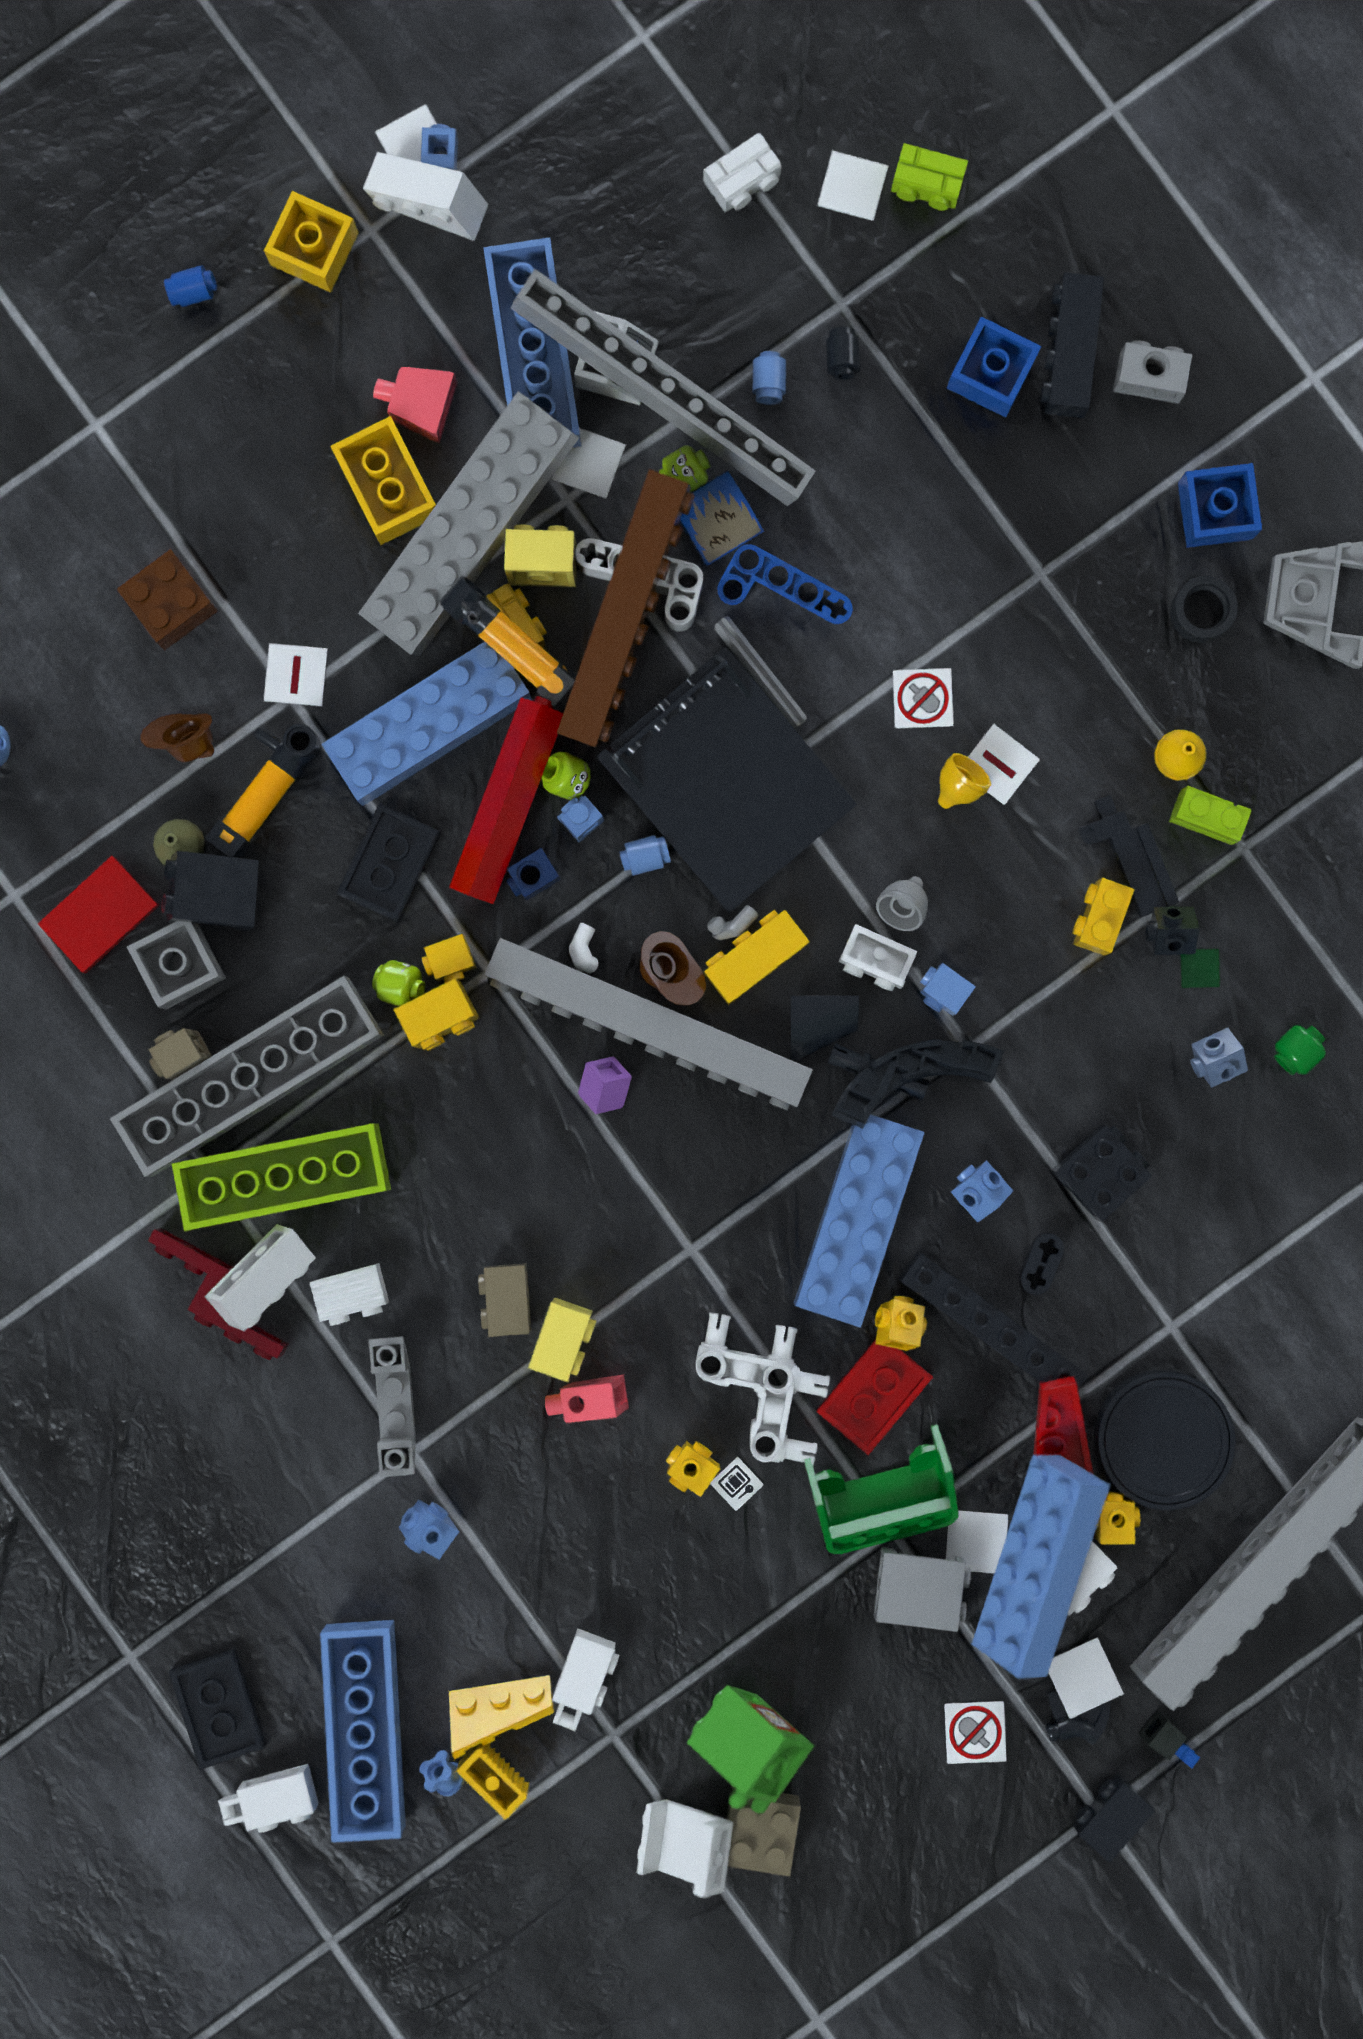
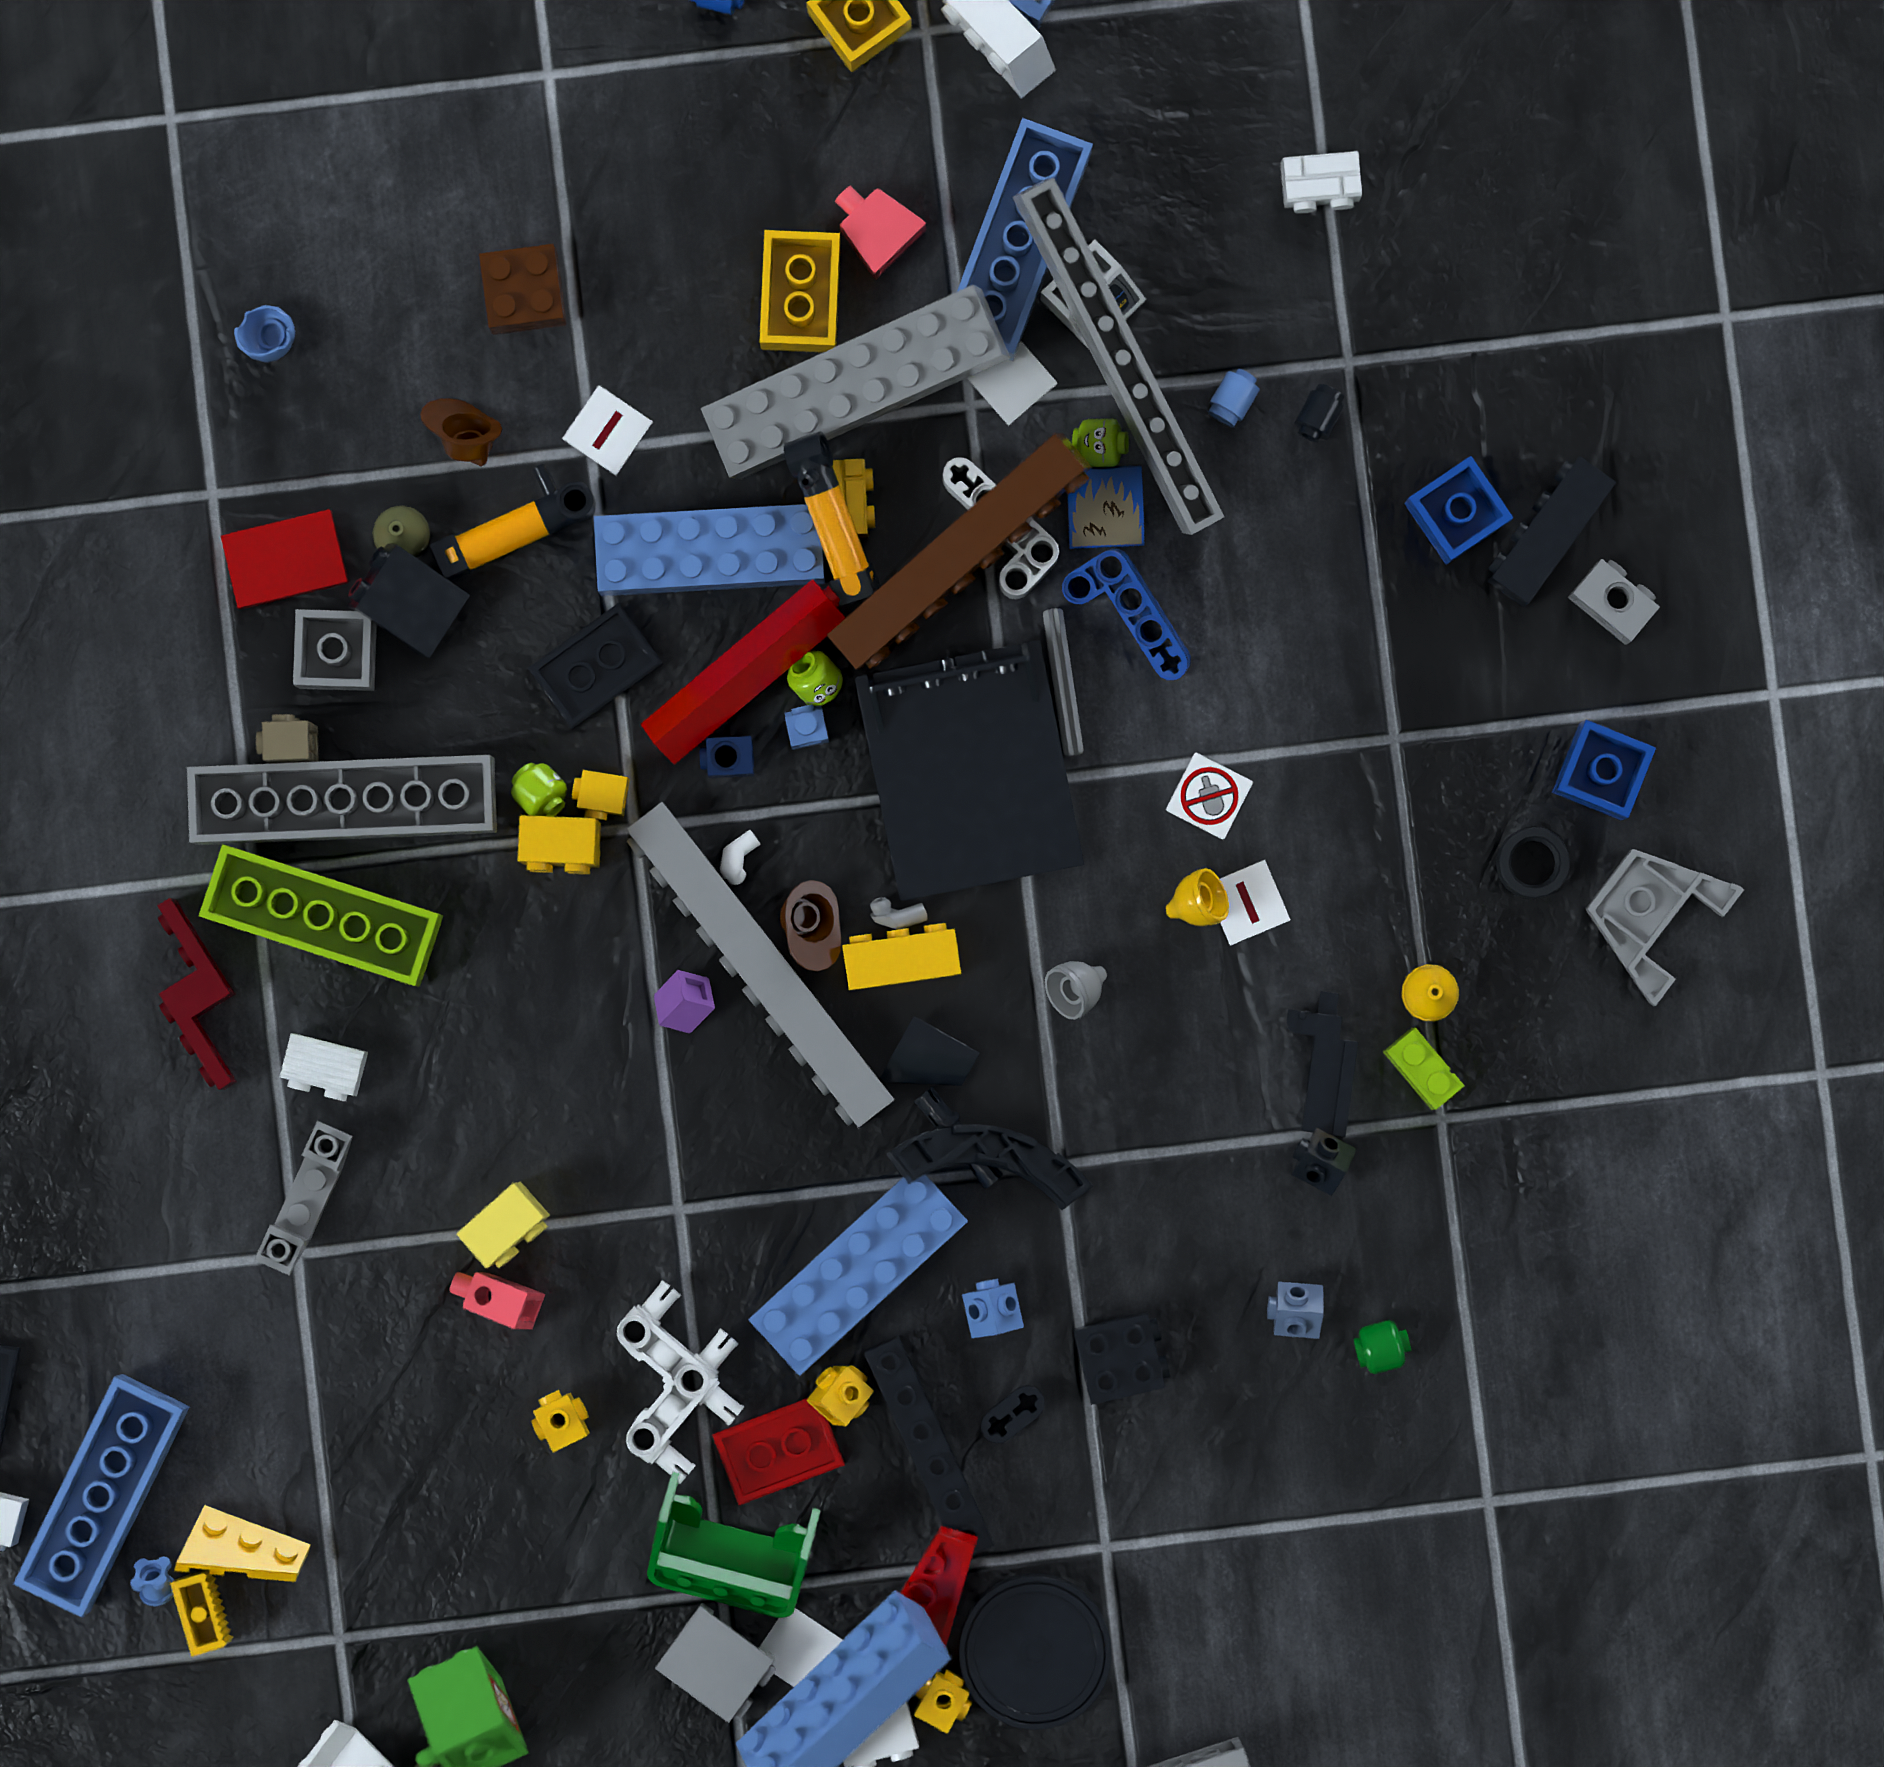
camera: 25 degrees right, 0 degrees up
(260, 1277) = (247, 1002): white brick -> none
(428, 1529) = (272, 1336): medium blue brick -> none
(506, 1300) = (471, 1157): dark tan brick -> none
(540, 556) = (909, 450): light yellow brick -> none
(583, 1676) = (341, 1563): white brick -> none
(645, 855) = (849, 798): medium blue brick -> none
(736, 1483) = (595, 1462): white sticker -> none
(852, 185) = (1425, 250): white sticker -> none
(877, 957) = (1020, 1026): white bracket -> none
(928, 177) = (1502, 286): lime brick -> none
(945, 989) = (1068, 1093): medium blue brick -> none
(1103, 916) = (1263, 1109): yellow brick -> none
(1200, 969) = (1332, 1214): dark green sticker -> none

